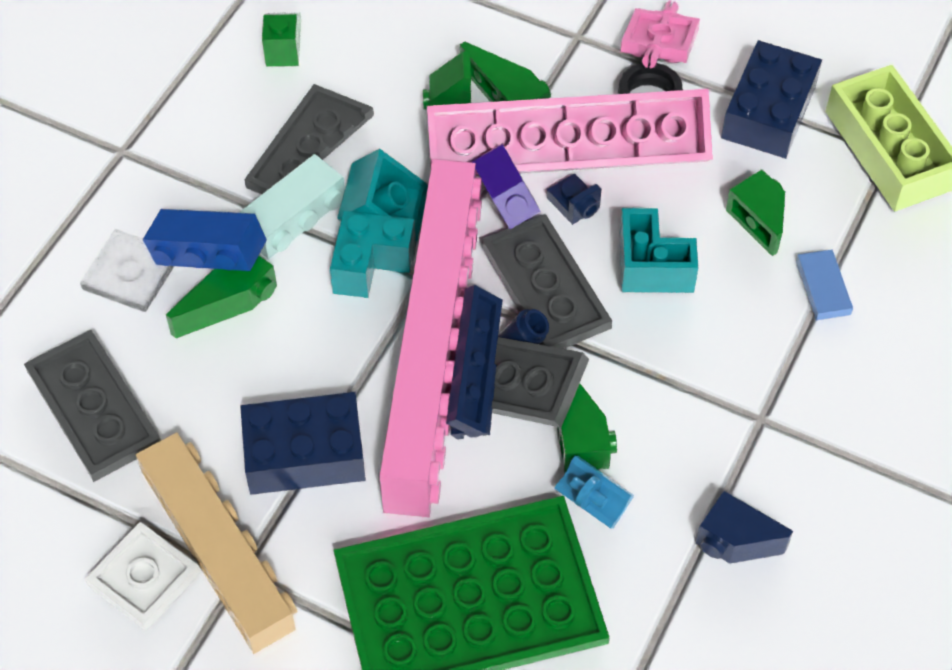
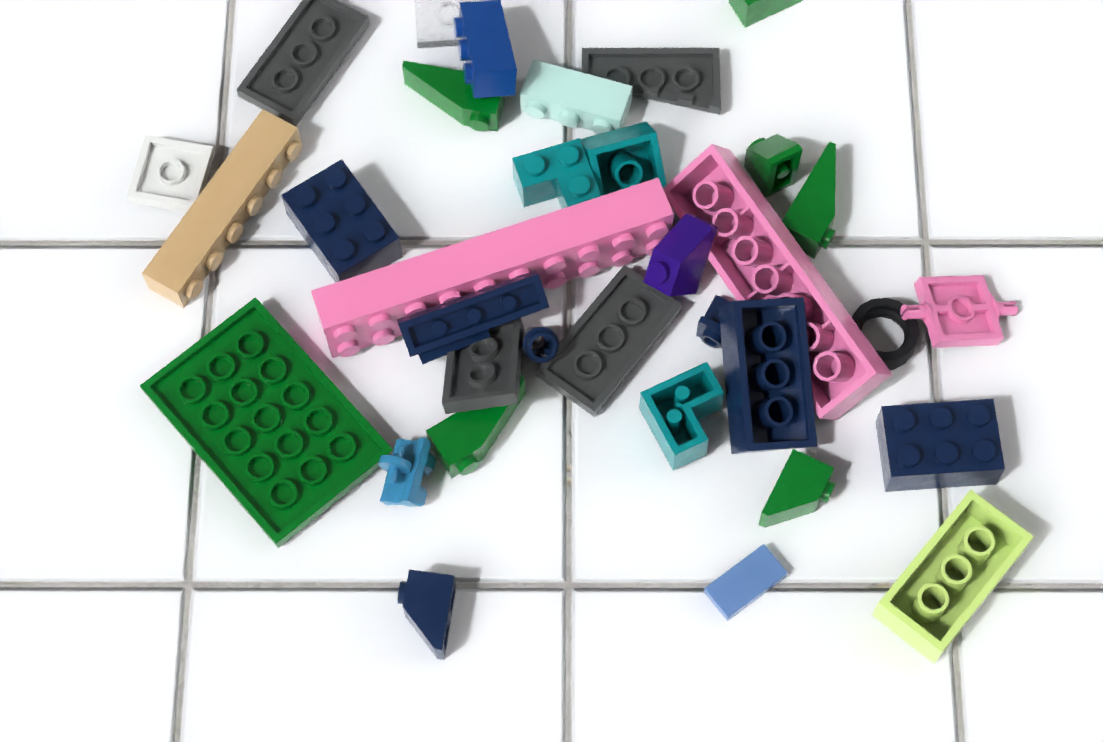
camera: 65 degrees right, 10 degrees up
(656, 172) = (767, 375): none -> dark blue slope

